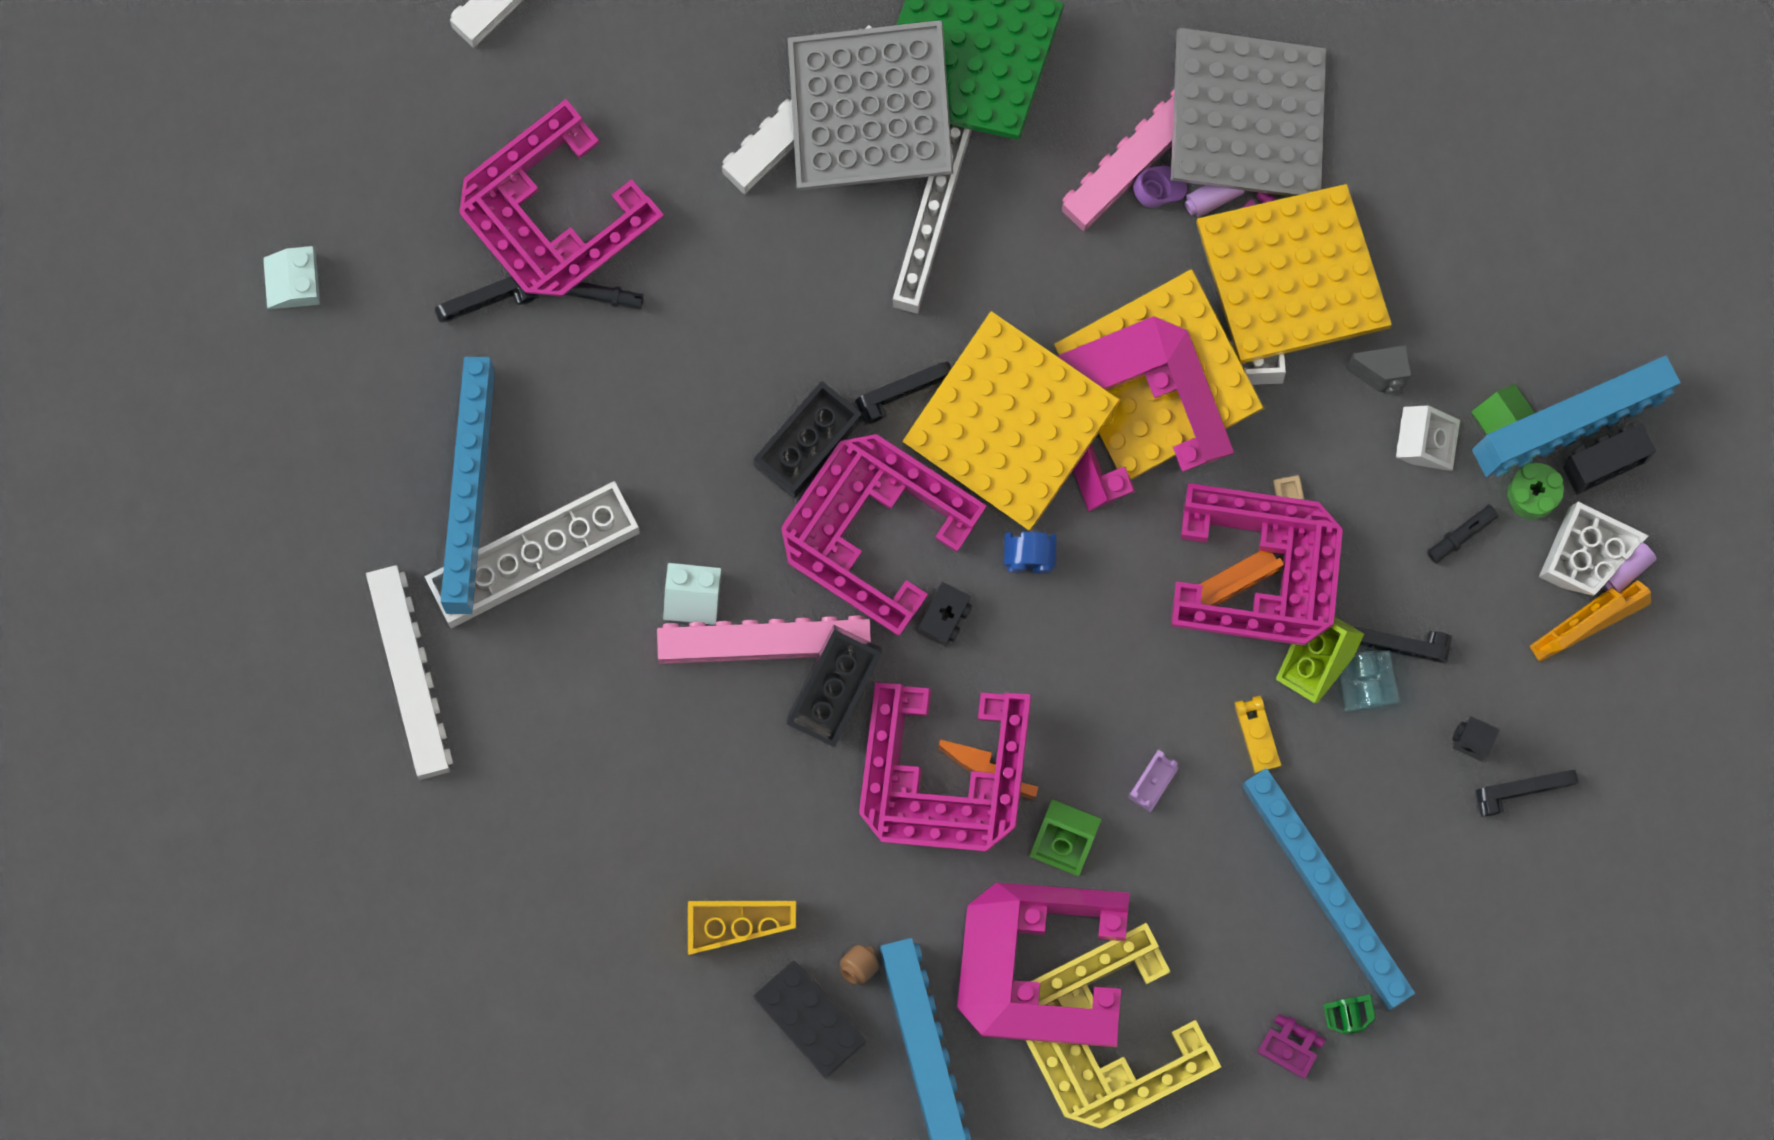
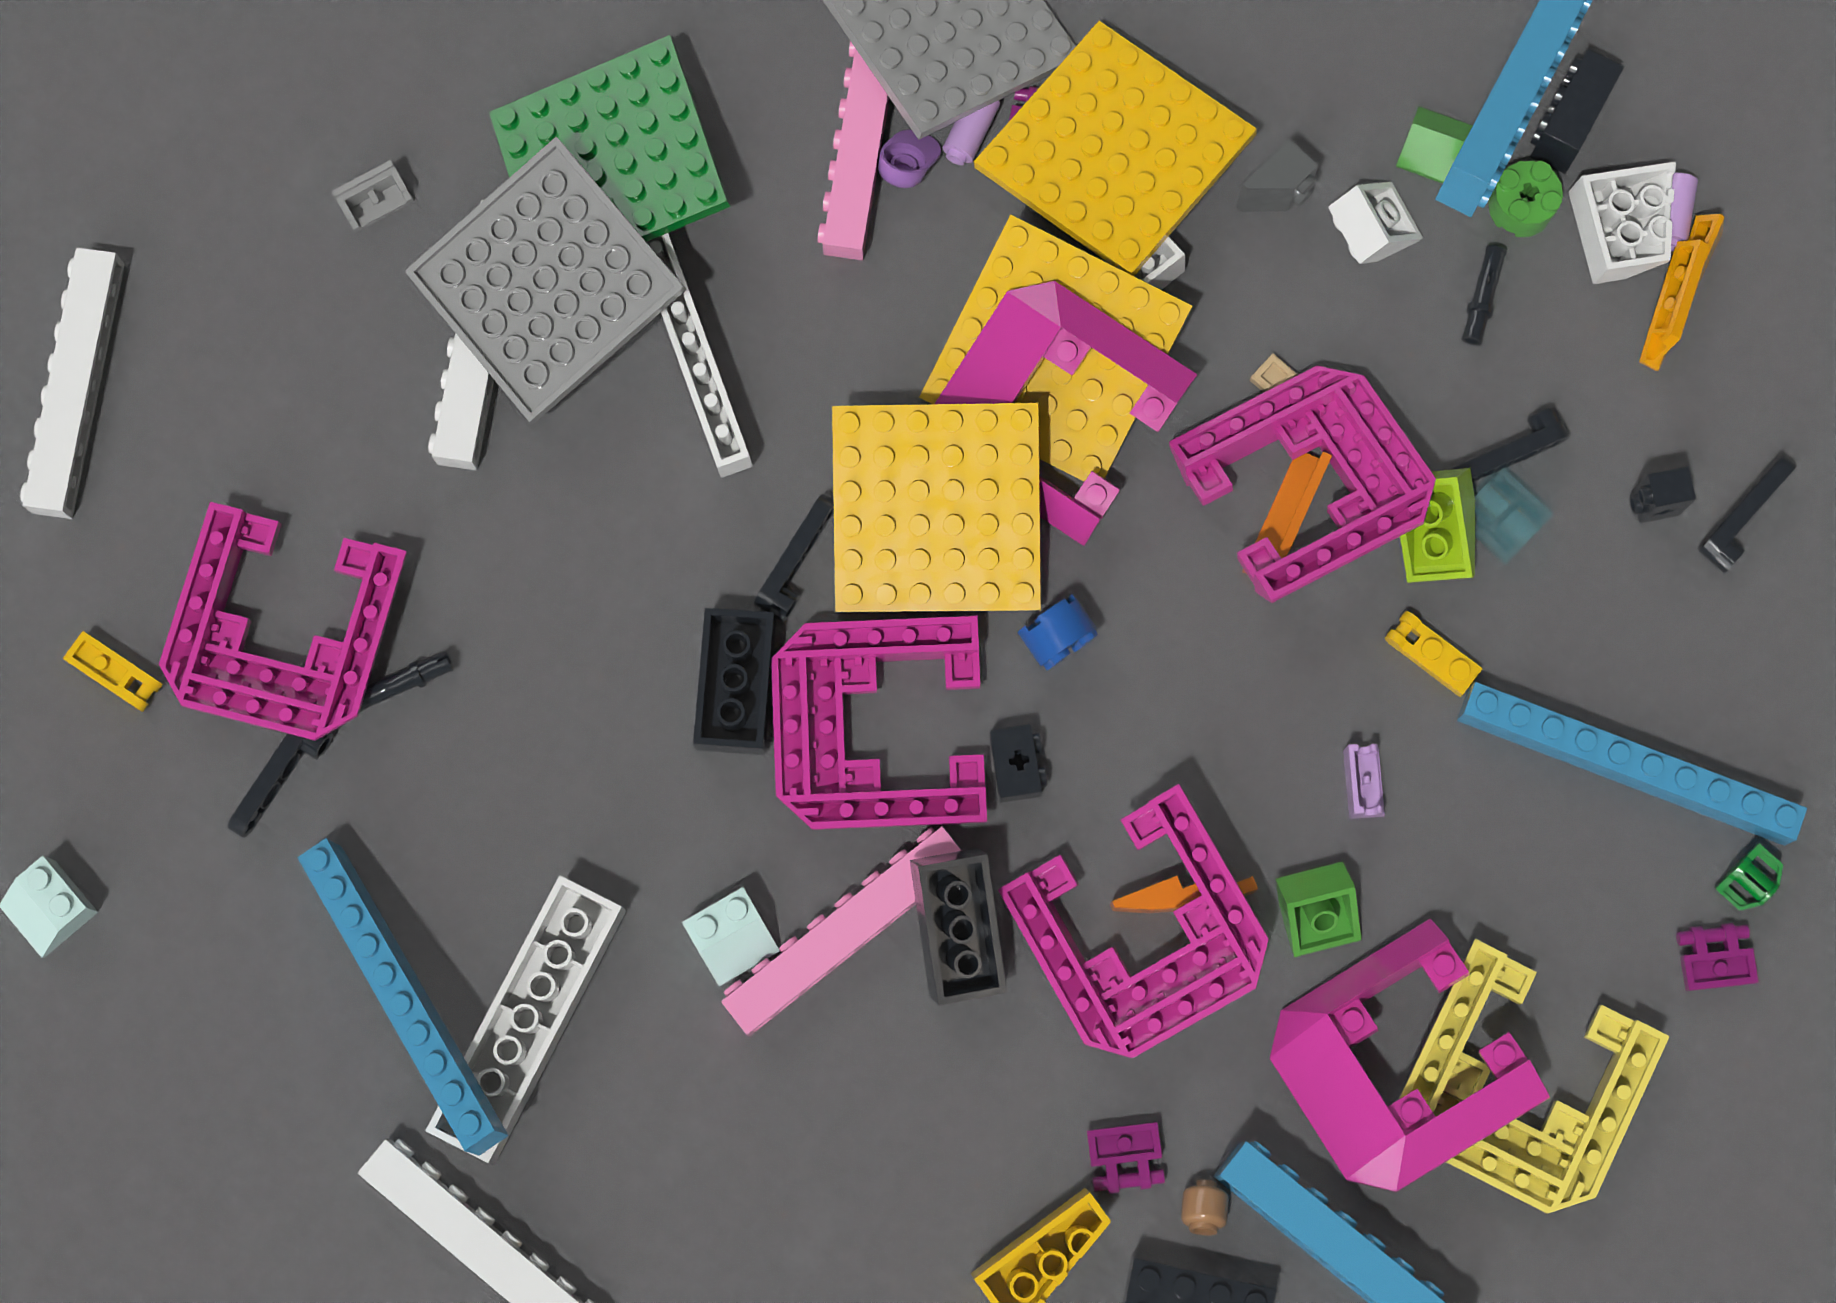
camera: 30 degrees left, 0 degrees up
(431, 160) = (111, 670): none -> yellow plate
(838, 892) = (1125, 1145): none -> magenta plate

